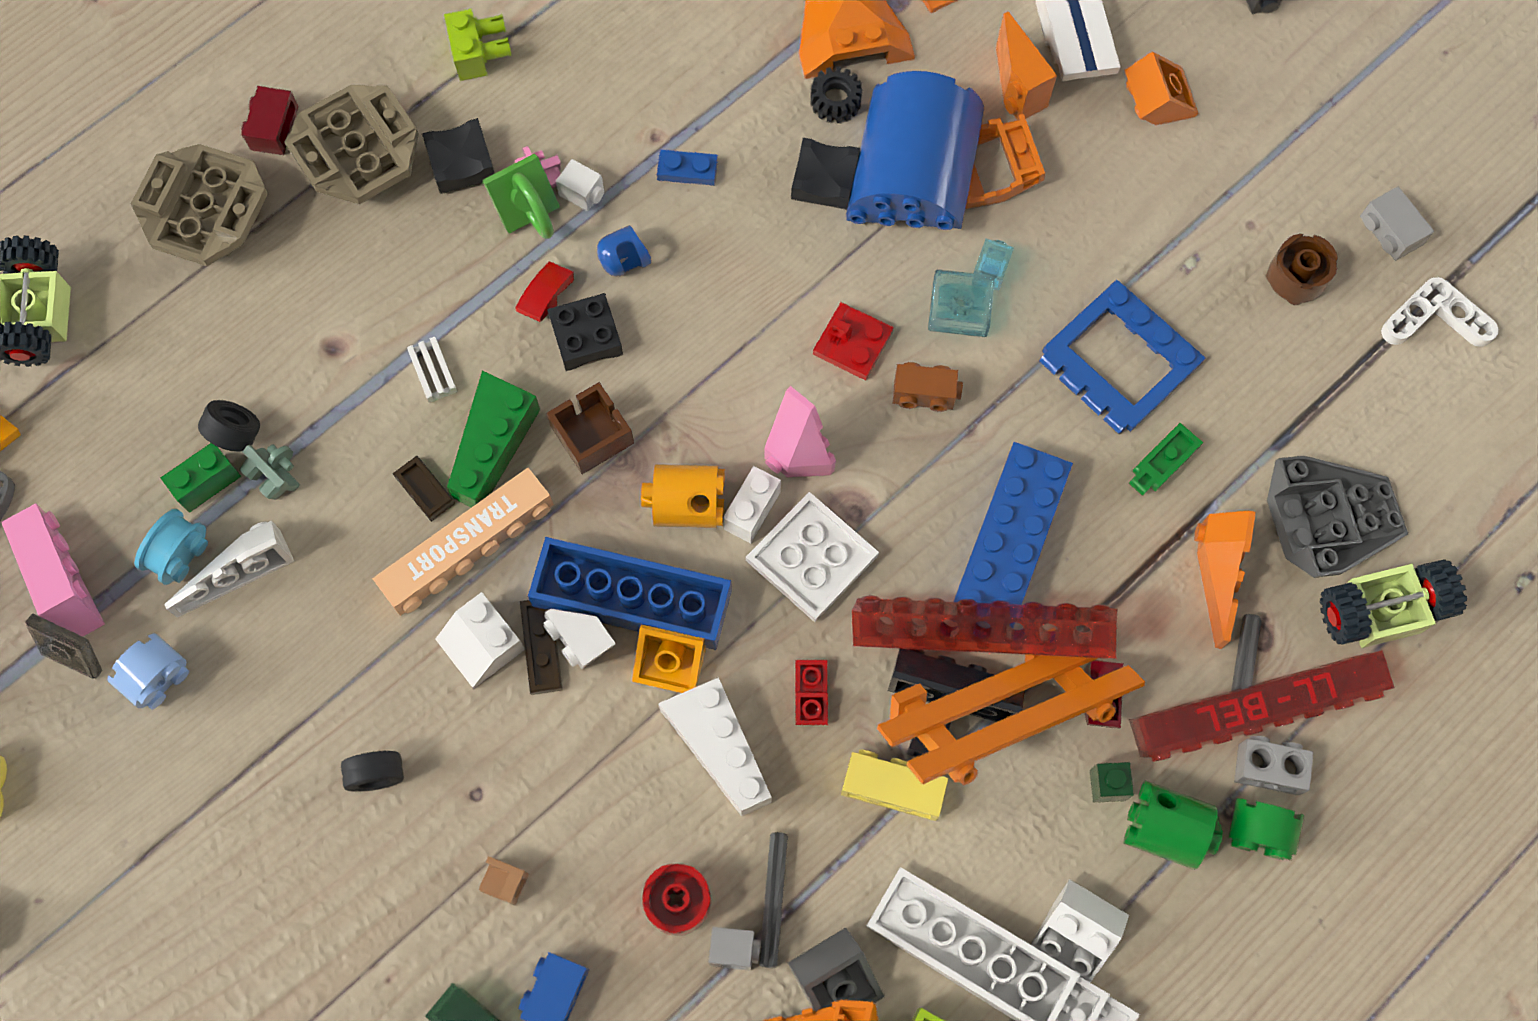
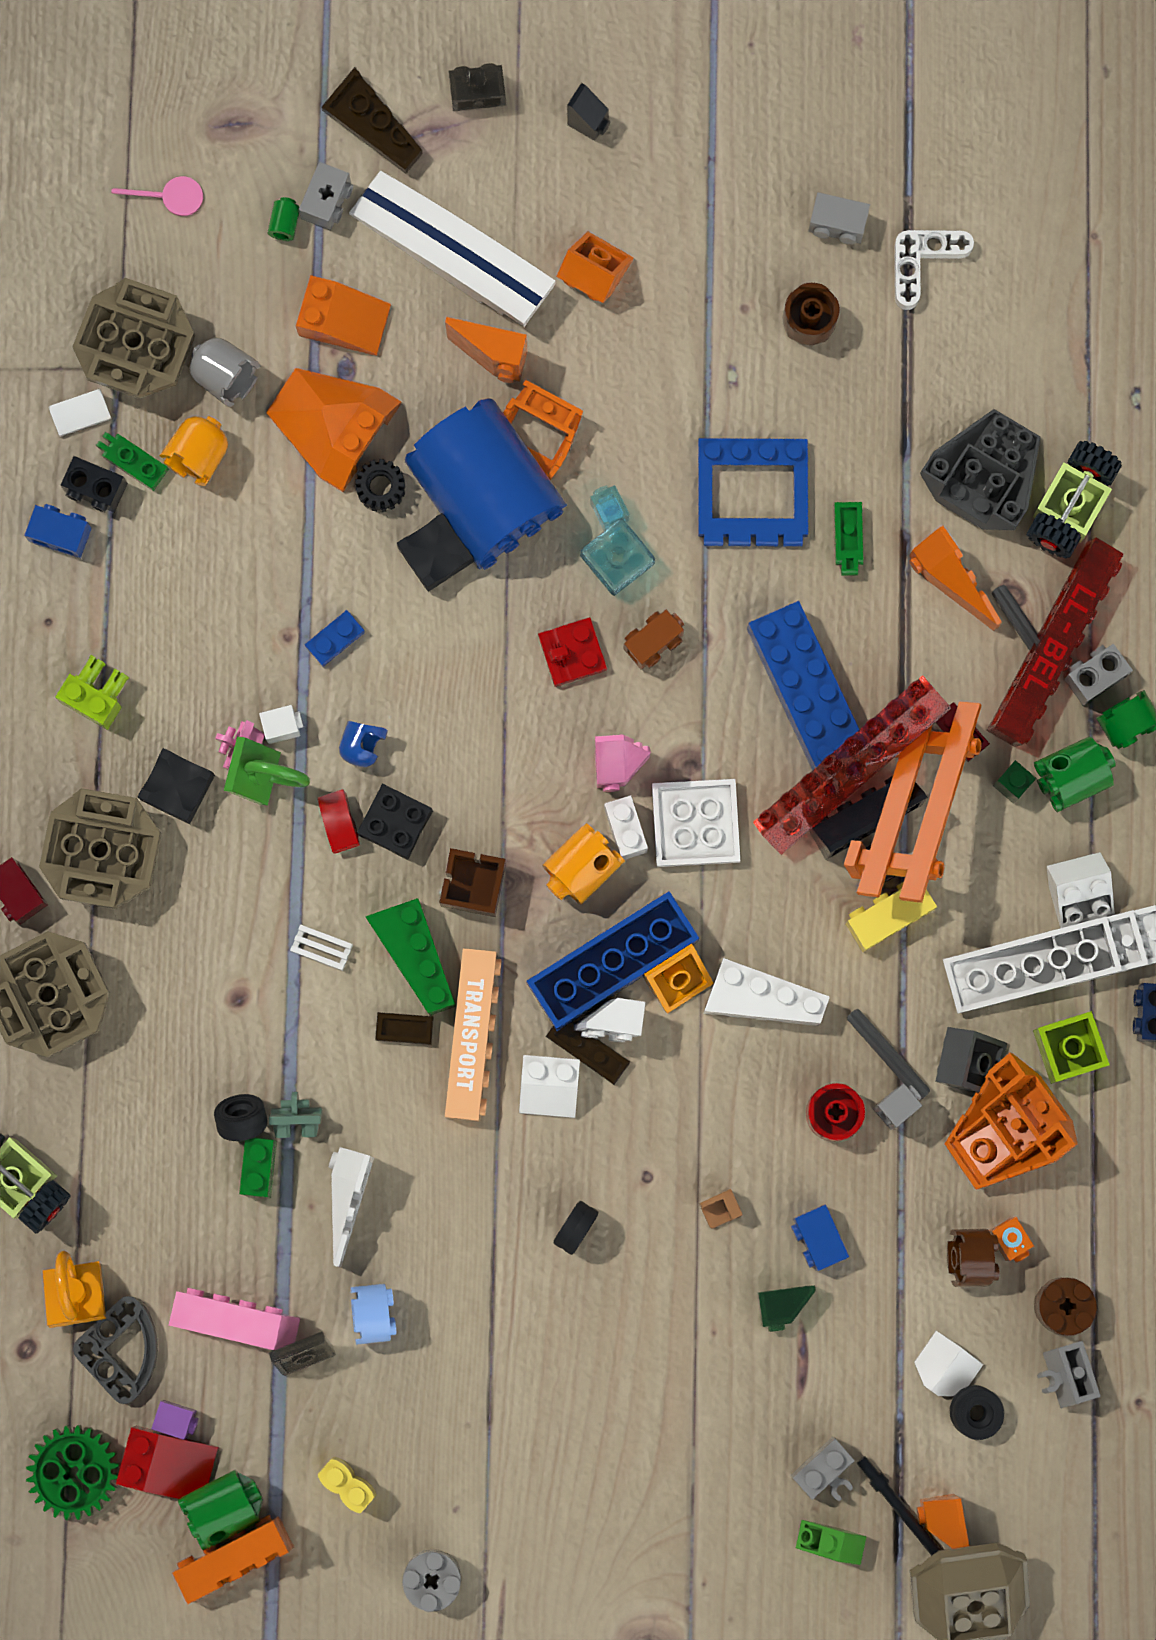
camera: 45 degrees left, 10 degrees up
(171, 547) = (296, 1227): medium azure wheel -> none
(811, 692) = (782, 908): red slope -> none

